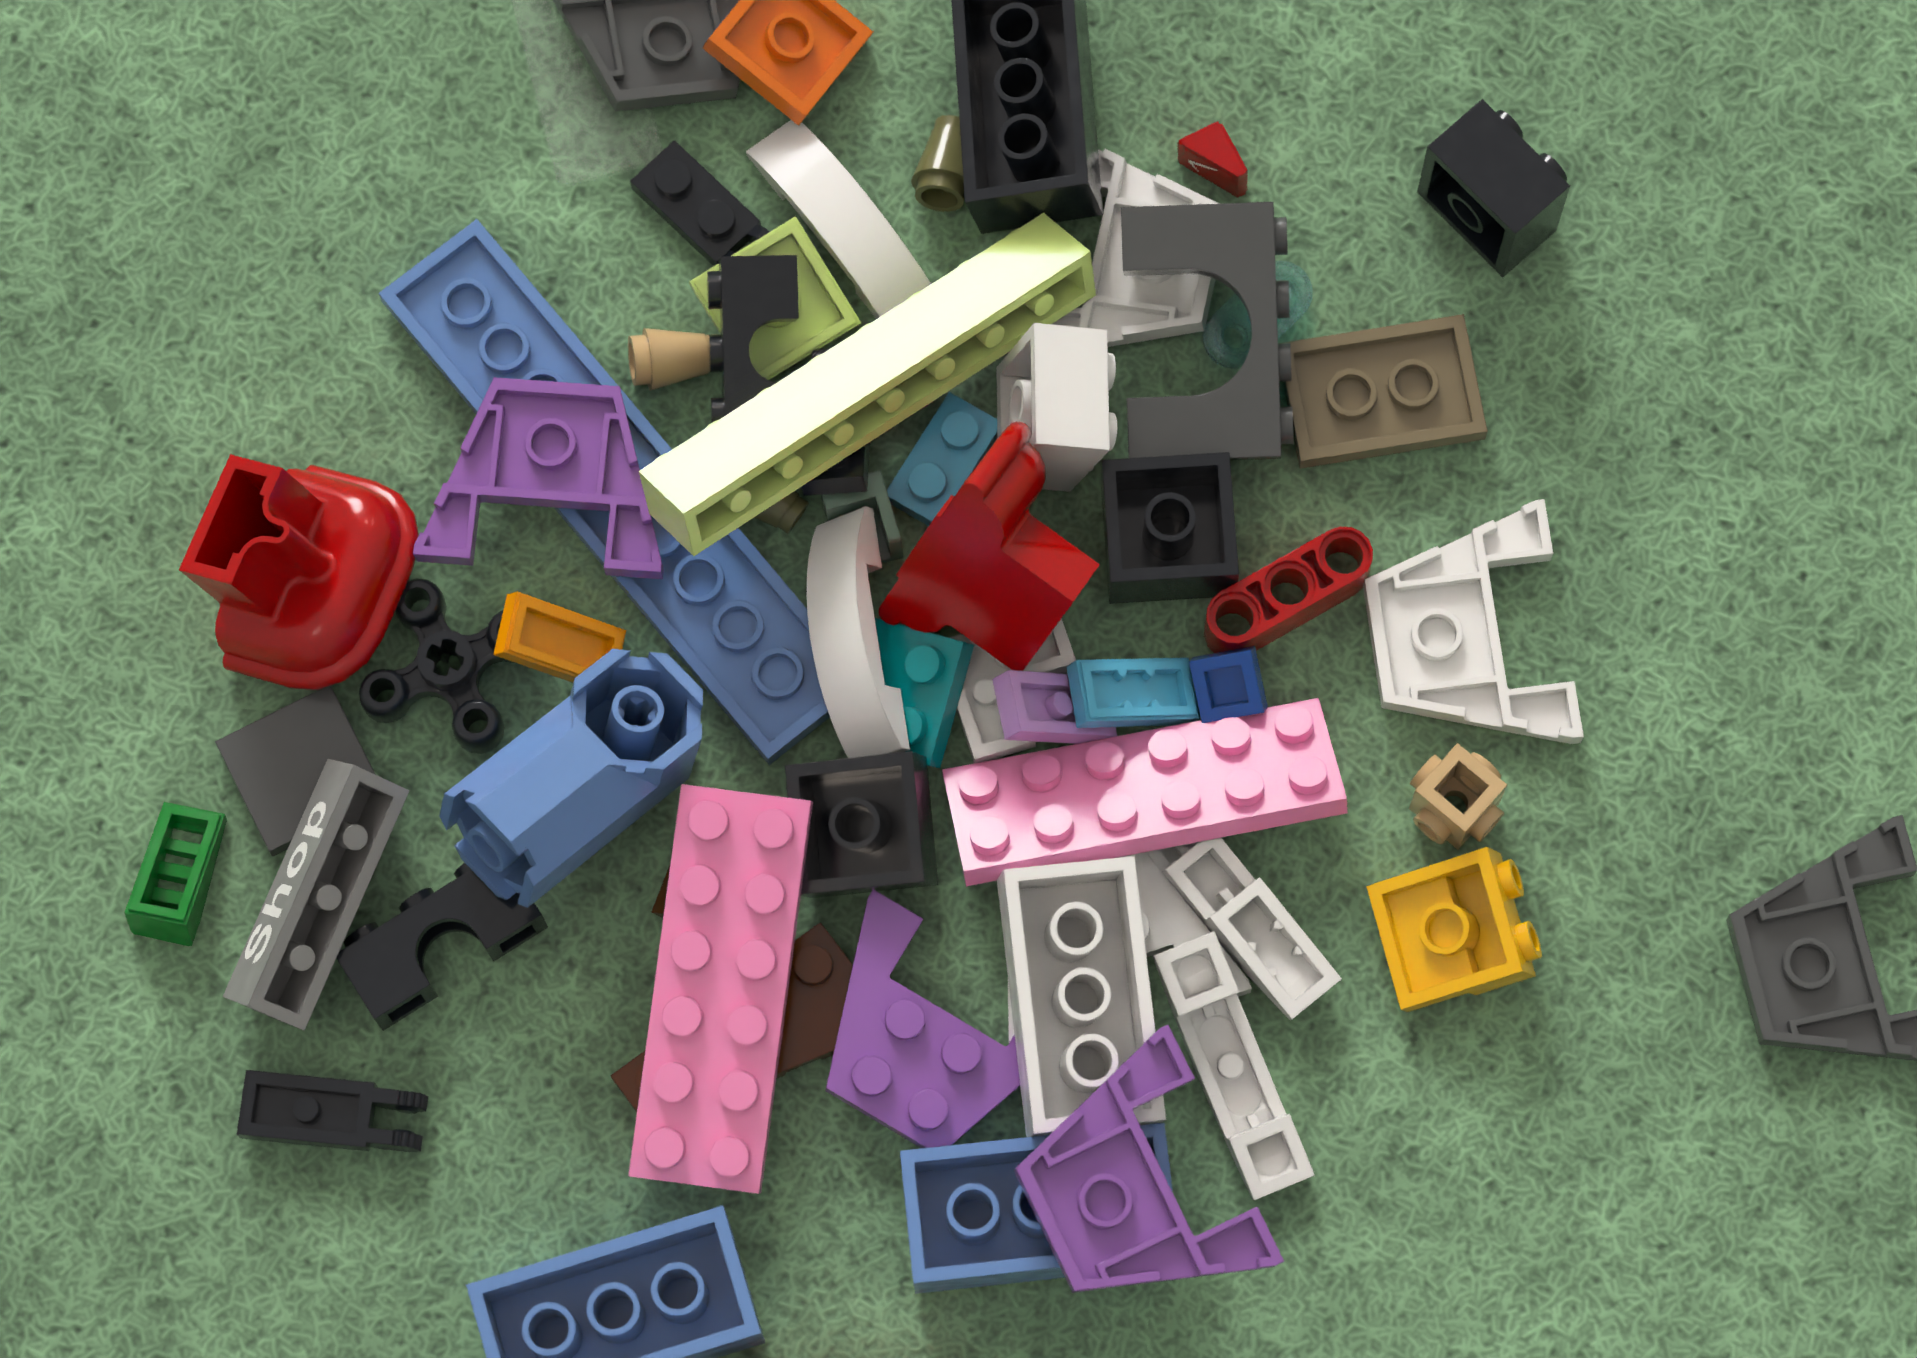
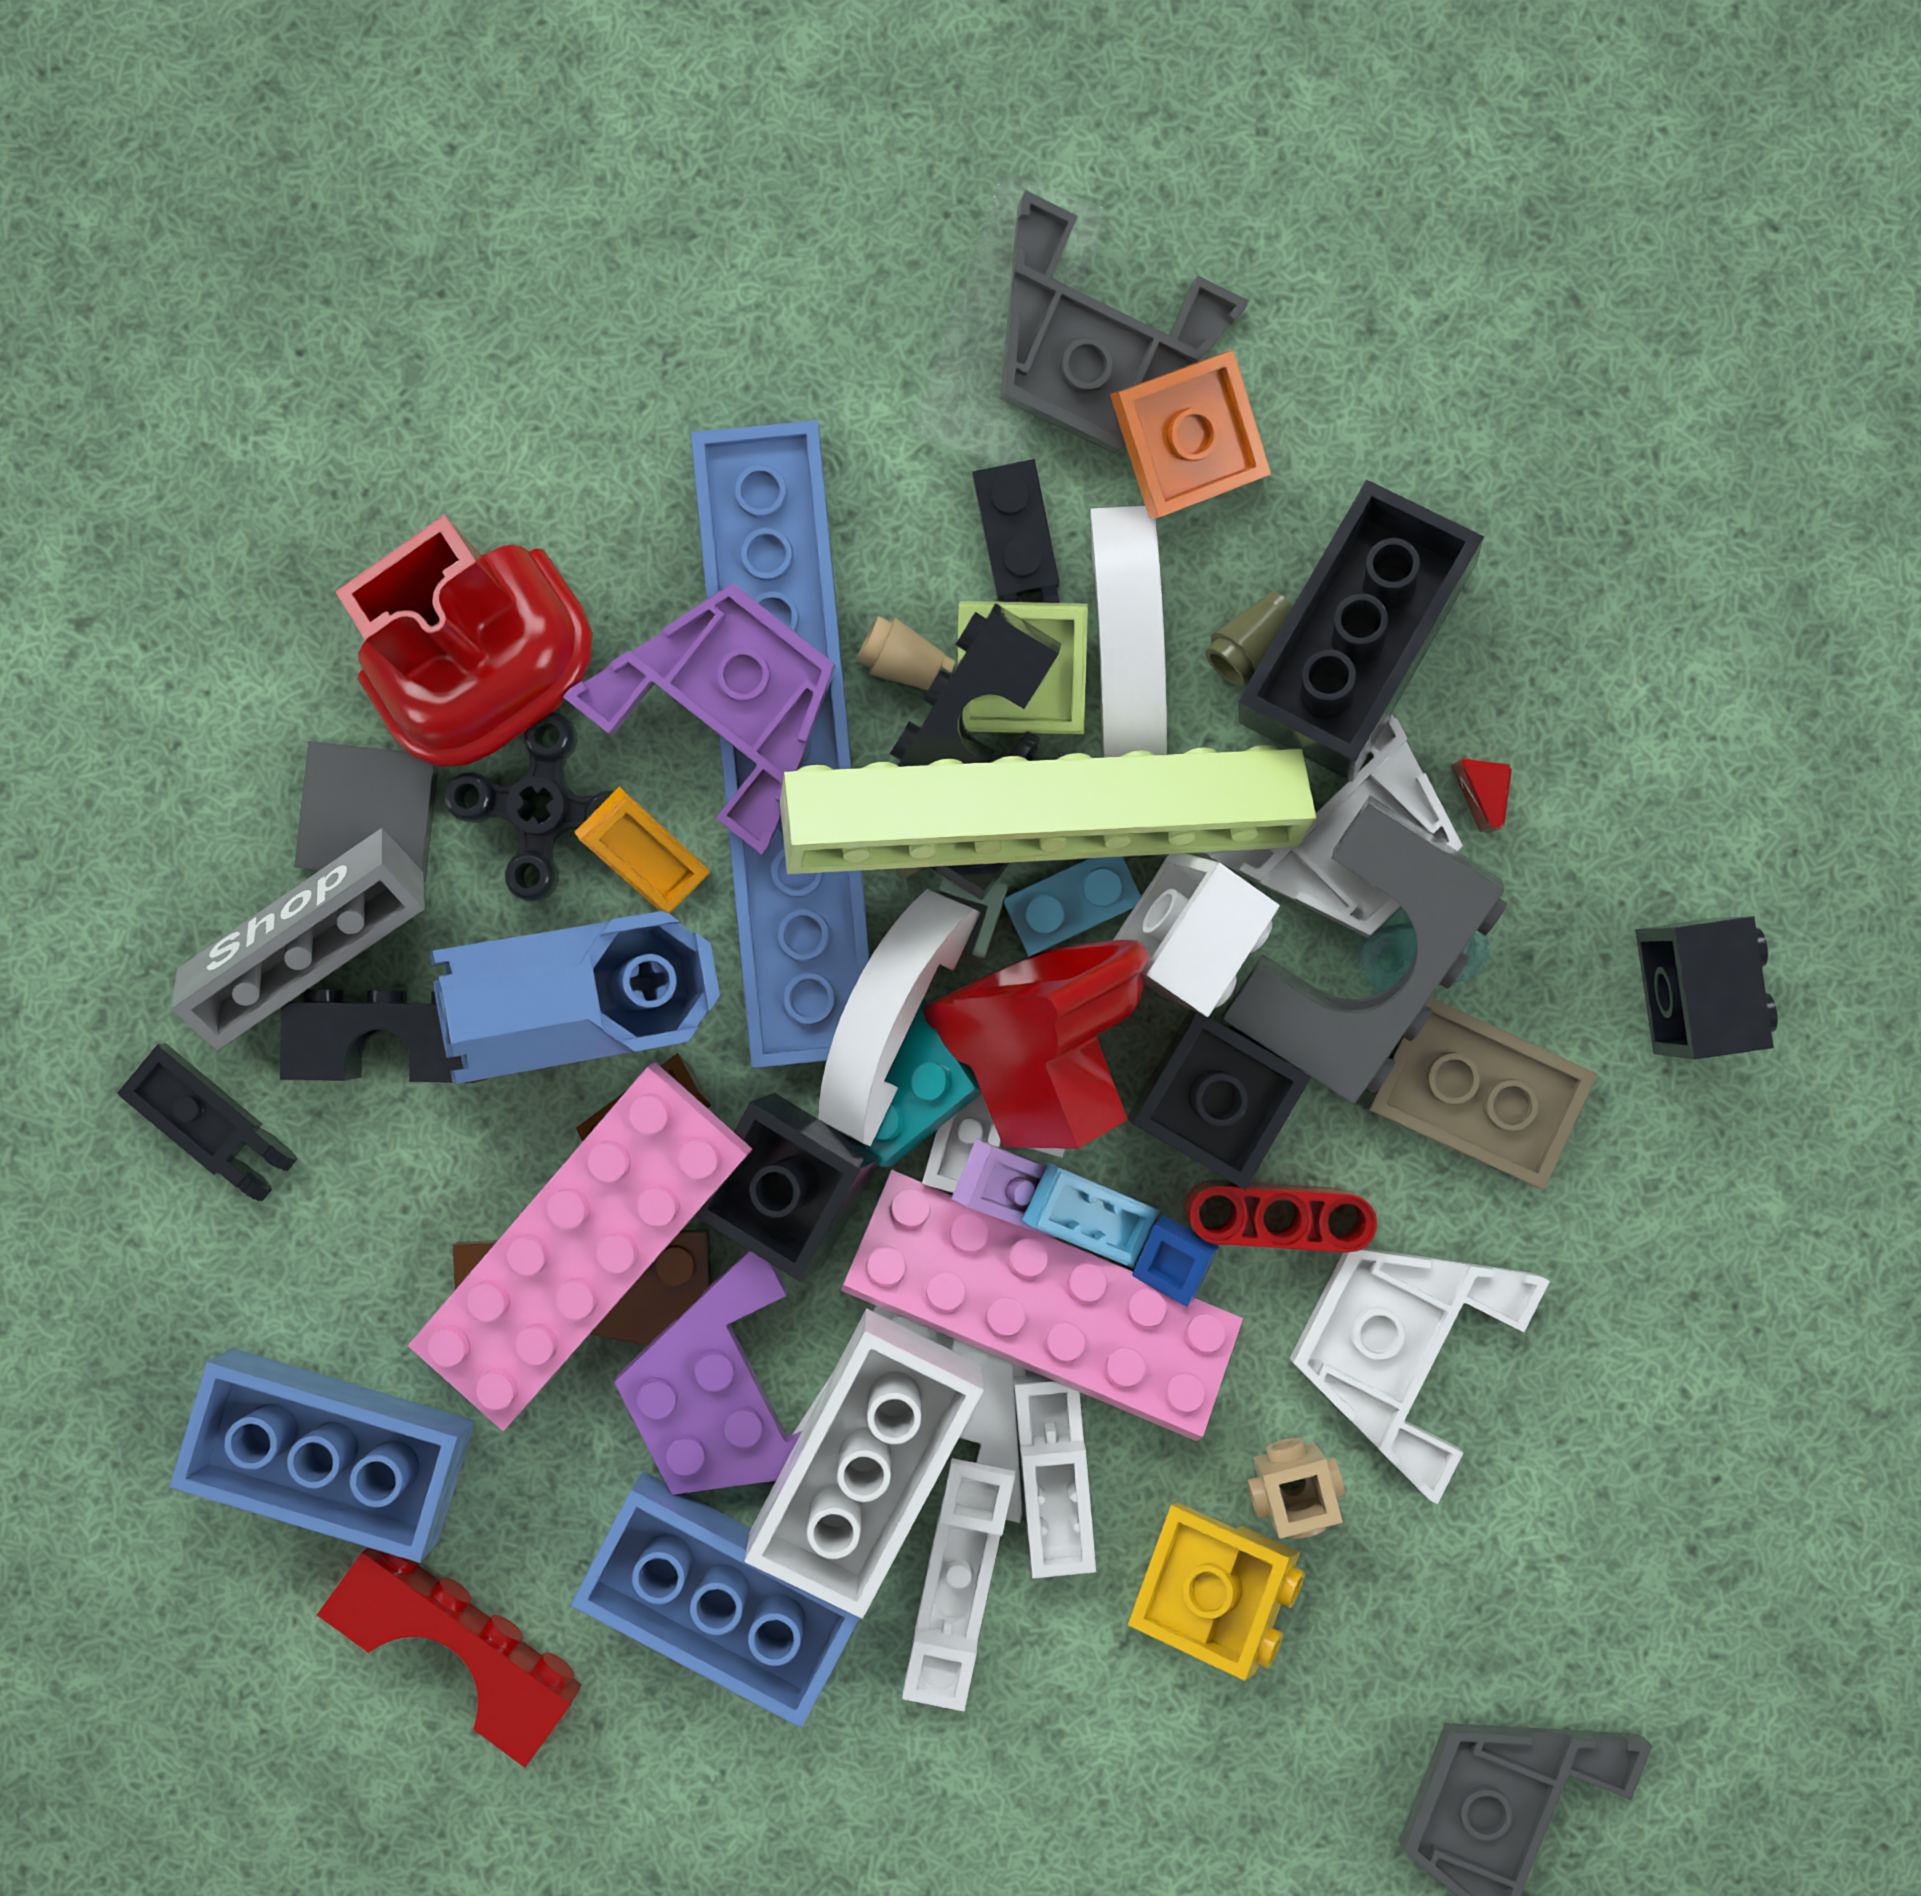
camera: 30 degrees right, 15 degrees up
(164, 923) = (226, 847): green slope -> none
(1109, 1200) = (768, 1655): medium lavender wing -> none

